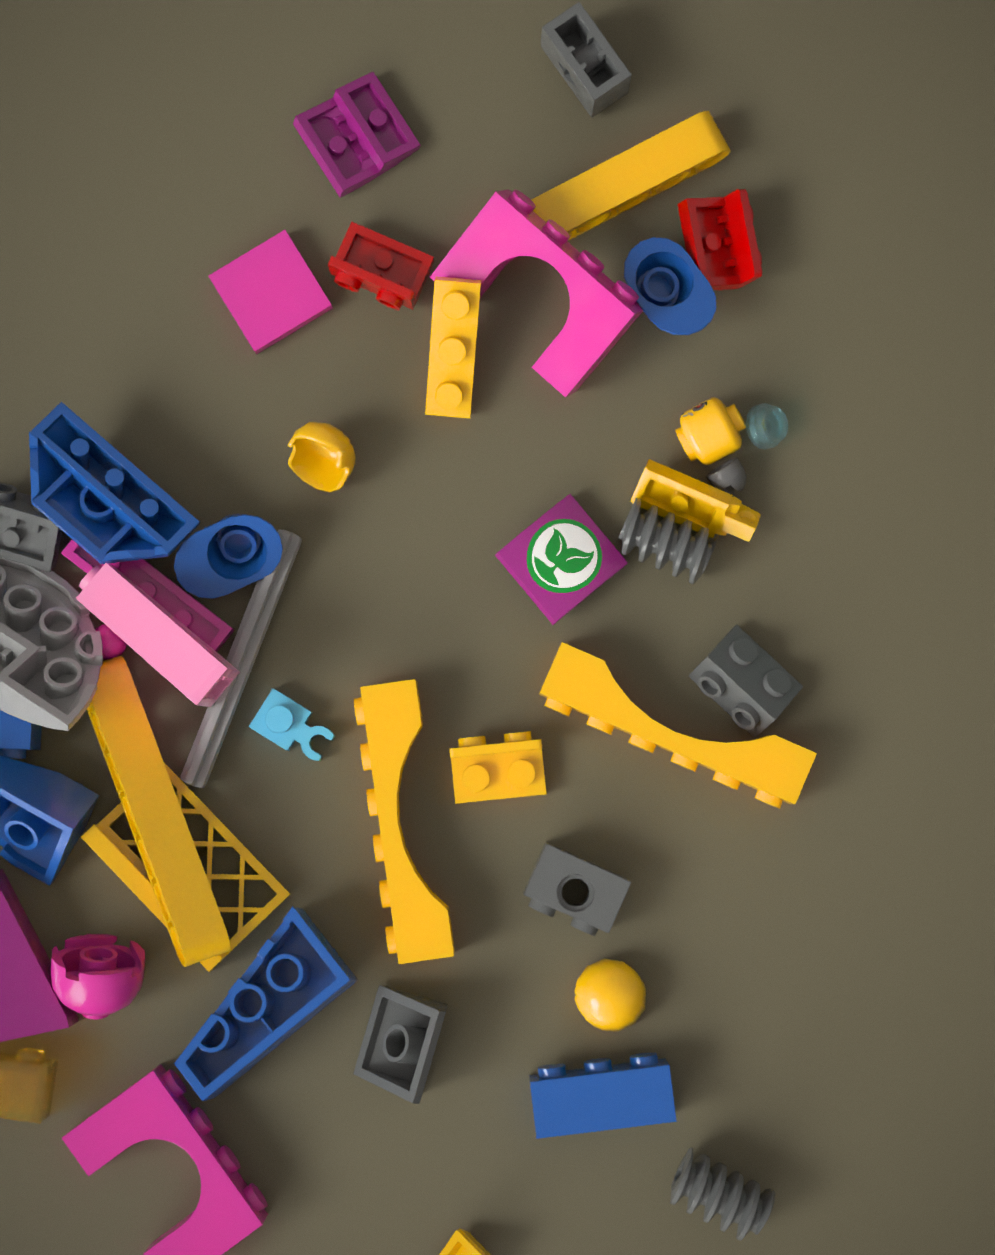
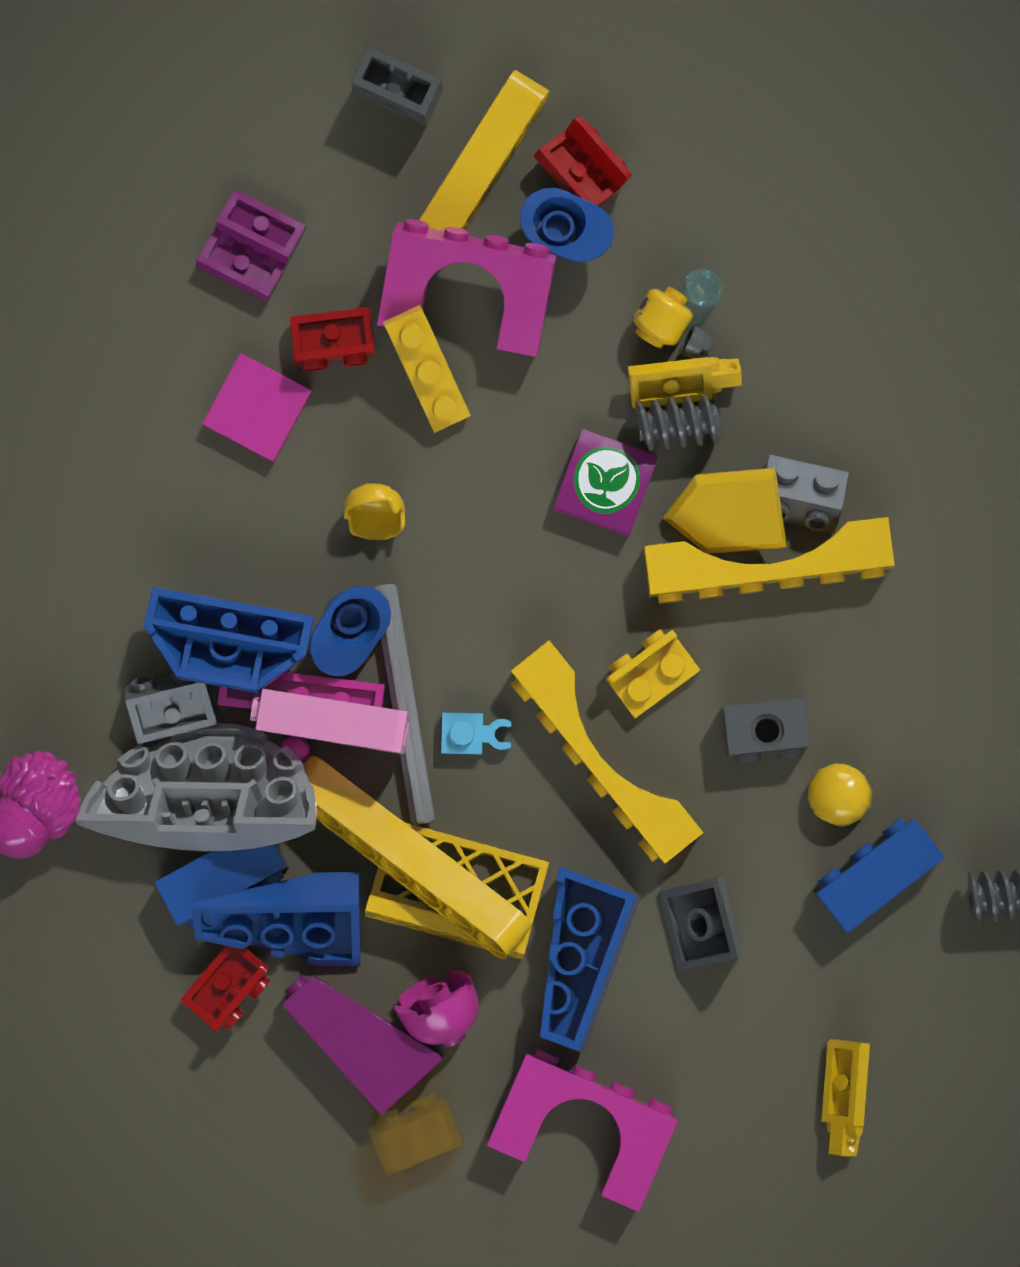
camera: 25 degrees left, 0 degrees up
(666, 658) = (730, 511): none -> yellow tile

